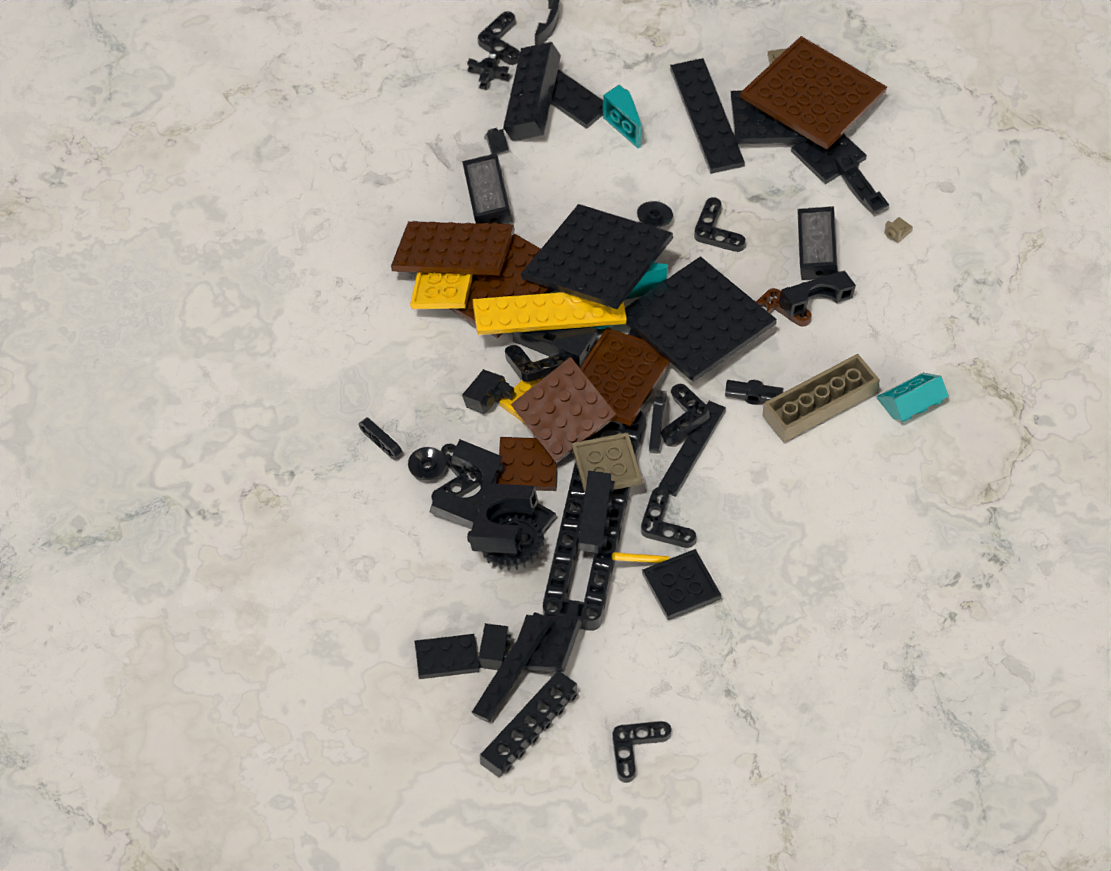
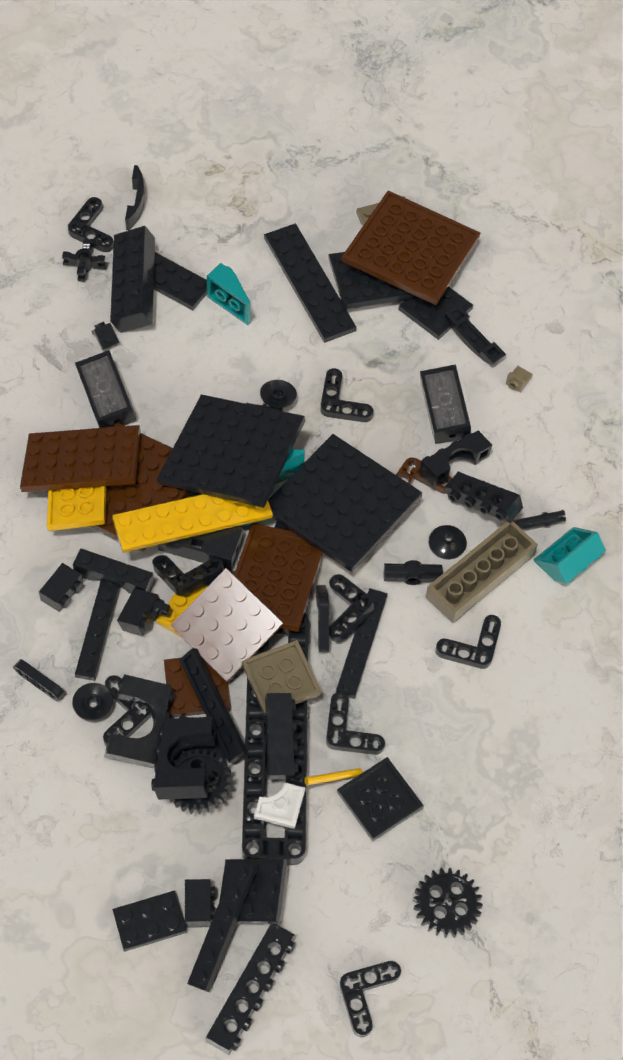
camera: 15 degrees left, 5 degrees up
(415, 361) = (61, 587): none -> black brick
(445, 399) = (97, 630): none -> black plate
(448, 345) = (97, 566): none -> black arch
(538, 477) = (213, 705): none -> black plate
(585, 575) = (282, 807): none -> white tile
(726, 665) = (452, 921): none -> black gear
(794, 376) = (447, 549): none -> black dish
(805, 470) = (480, 650): none -> black beam
(836, 331) = (484, 497): none -> black brick
(890, 361) = (540, 520): none -> black pin

